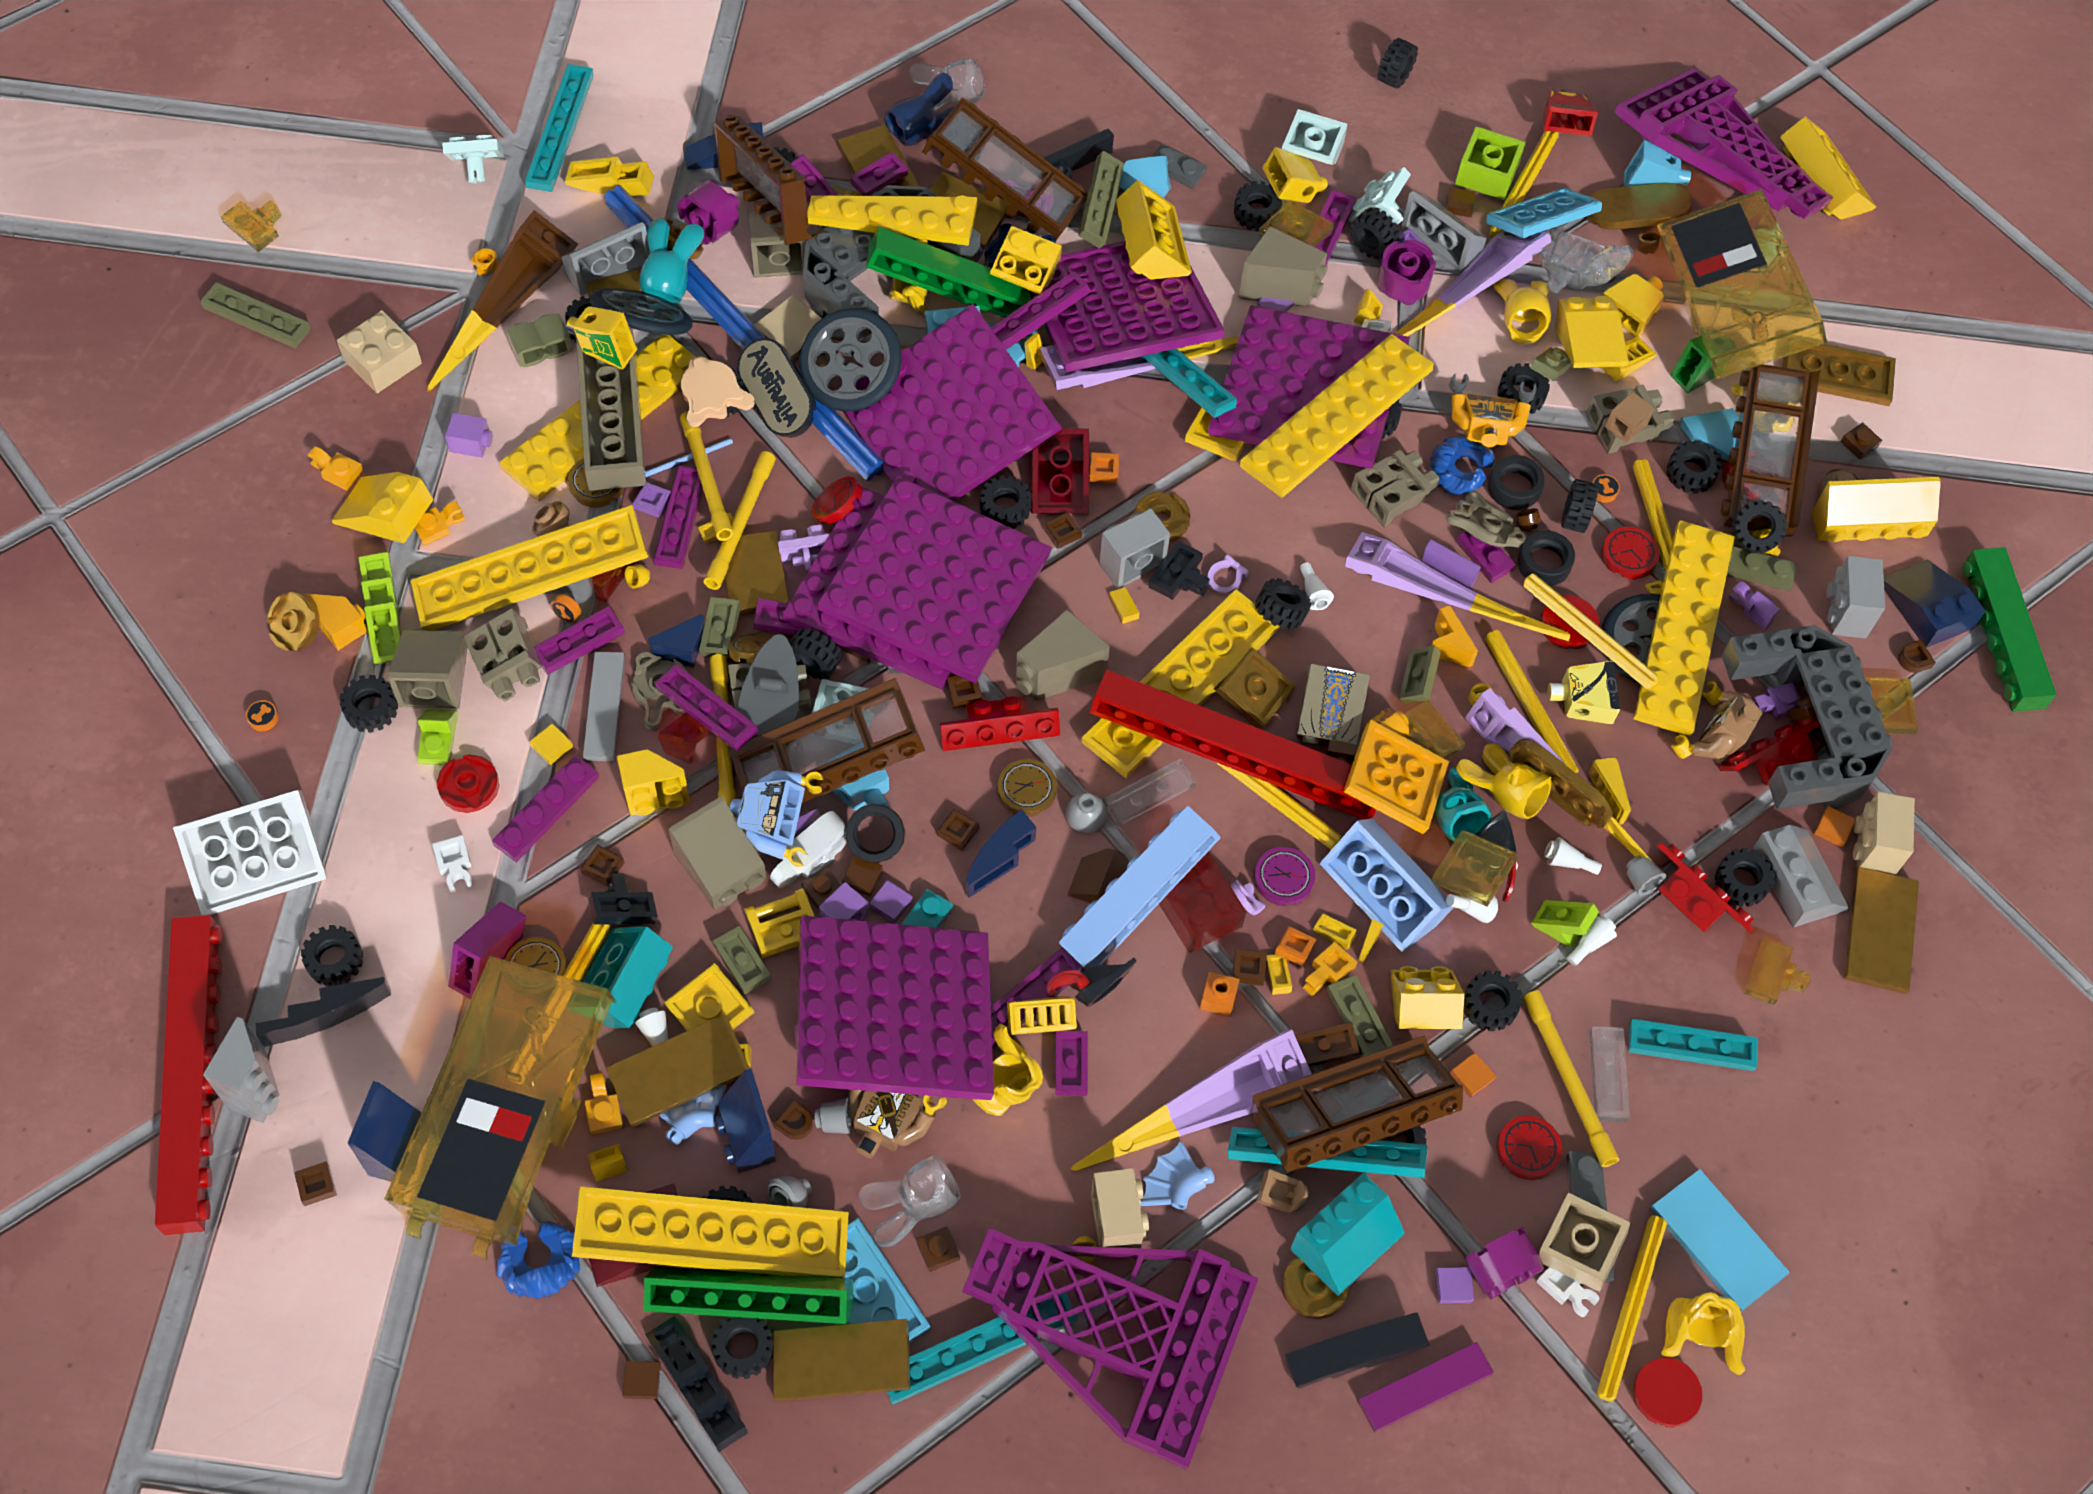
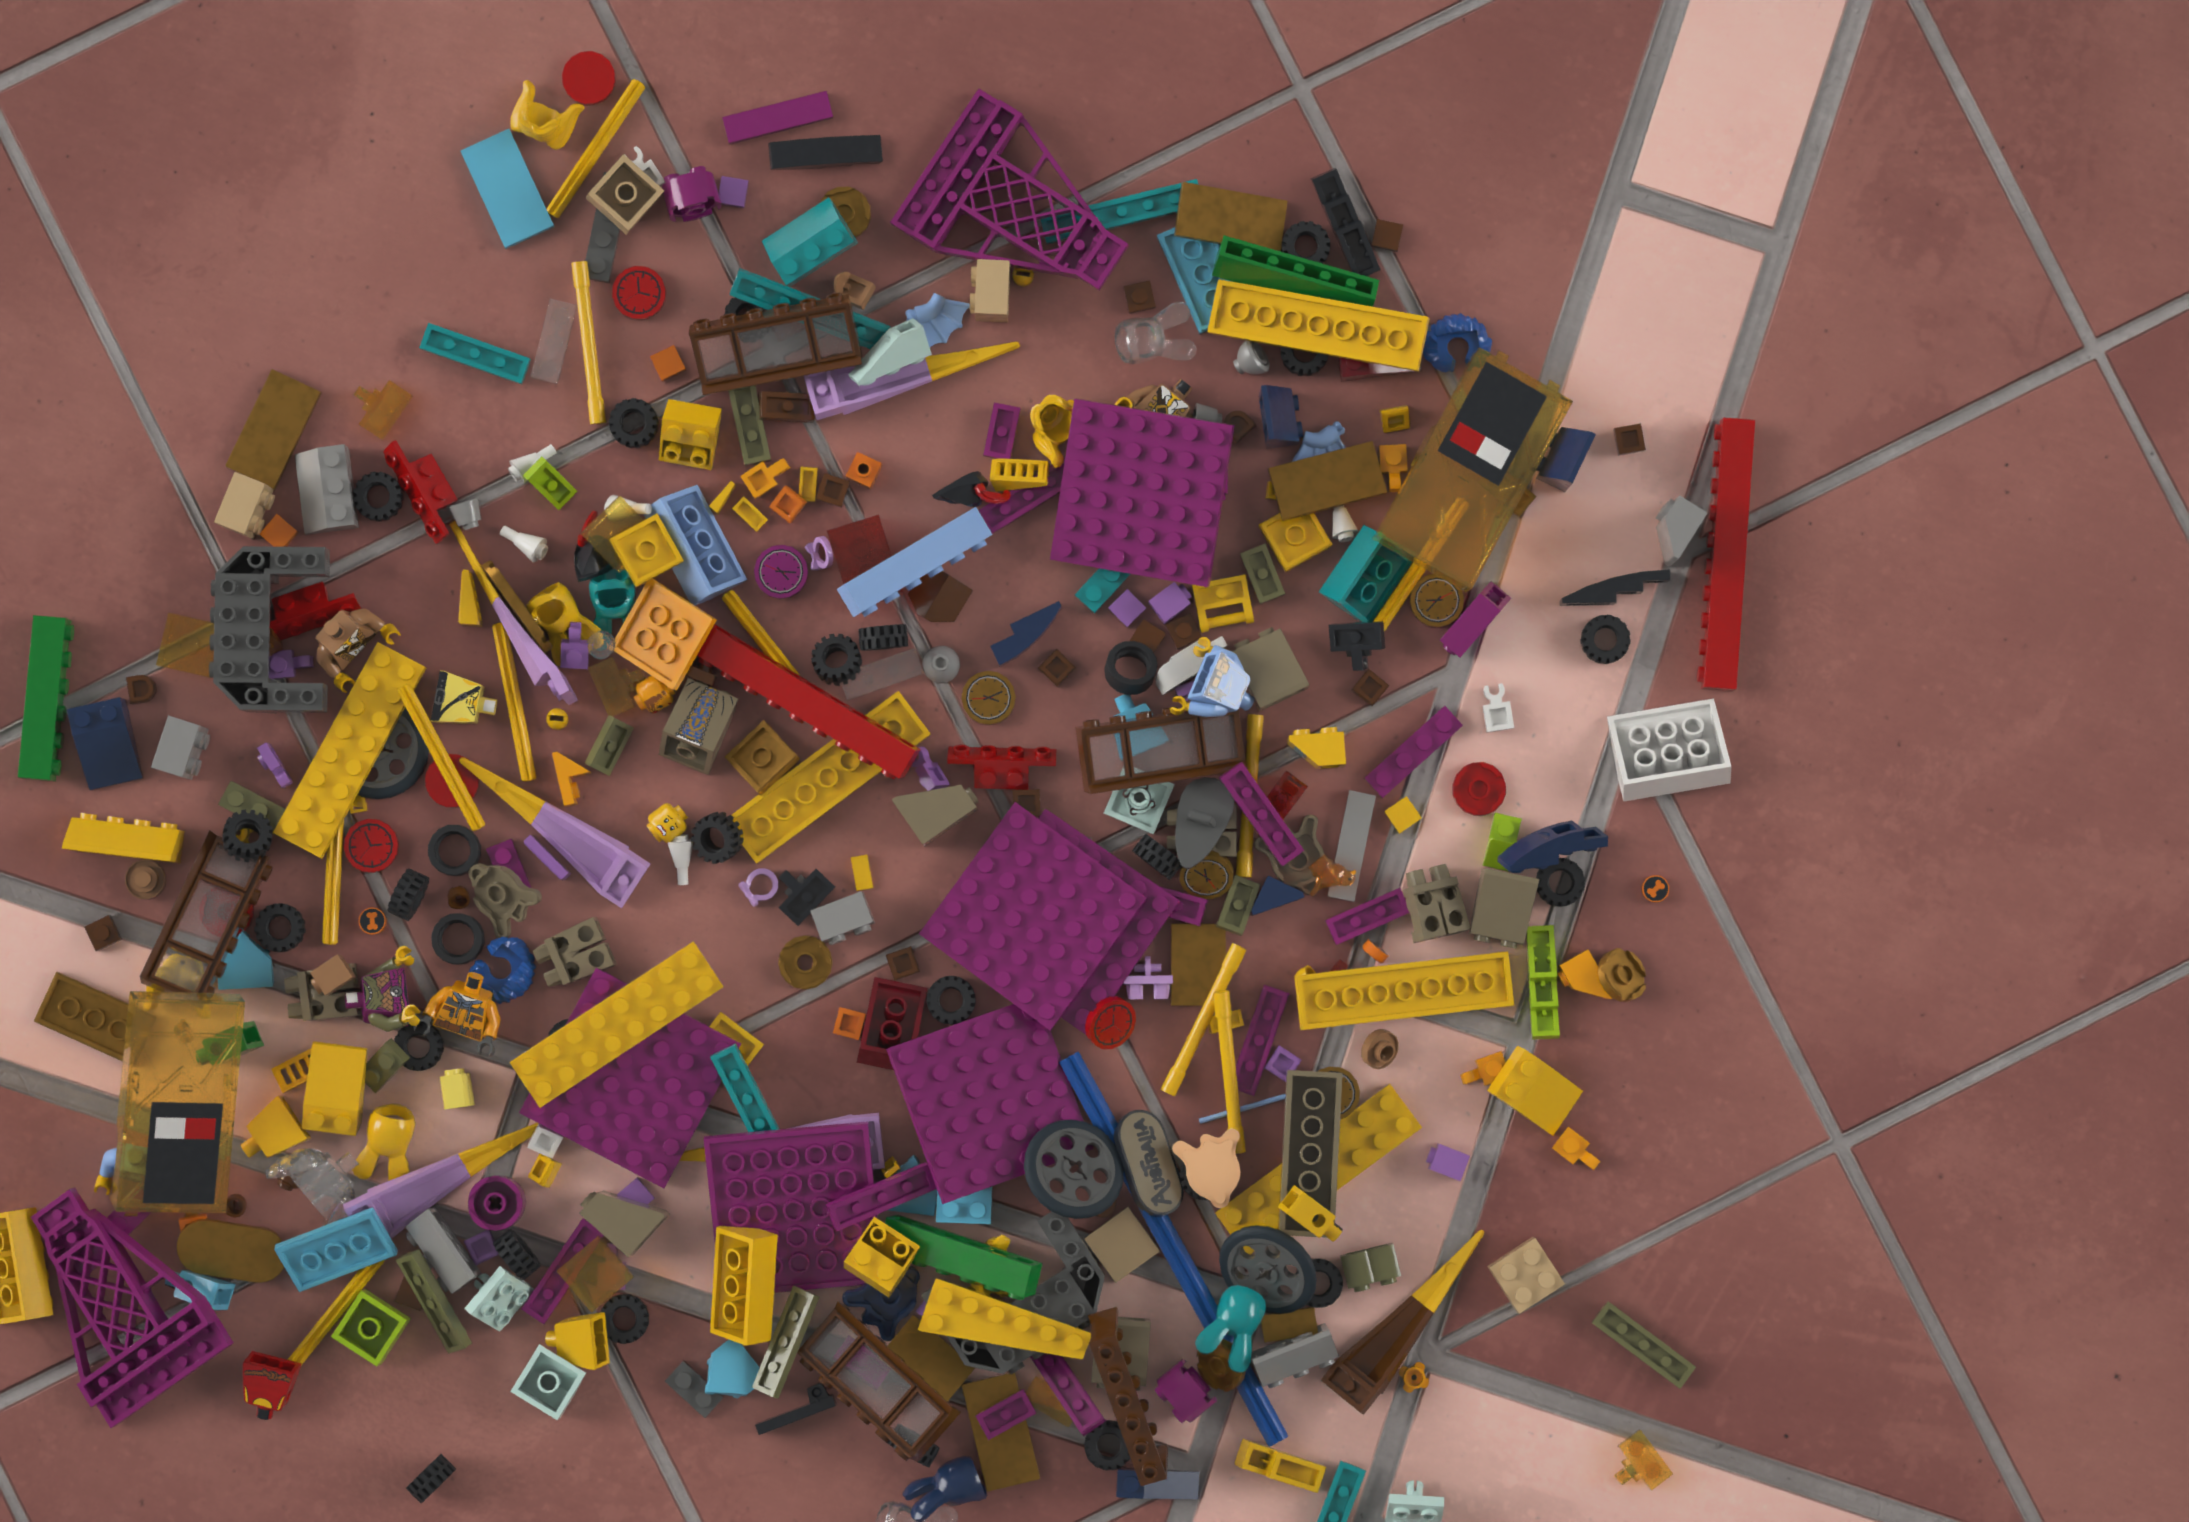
camera: 165 degrees left, 25 degrees up
(379, 726) = (1544, 846): none -> dark blue slope
(623, 665) = (1330, 874): none -> clear orange animal
(1073, 700) = (929, 772): none -> medium lavender plate
(1152, 816) = (883, 637): none -> black tyre
(1210, 776) = (842, 673): none -> black tyre
(1217, 1123) = (895, 349): none -> light aqua slope
(1338, 612) = (667, 822): none -> yellow head
(1440, 852) = (646, 550): none -> yellow tile
(1447, 196) = (433, 1301): none -> olive plate
(1459, 759) = (601, 644): none -> clear tile
(1474, 348) = (457, 1089): none -> light yellow brick
(1484, 752) = (574, 650): none -> medium lavender plate
(1571, 412) = (385, 995): none -> torso

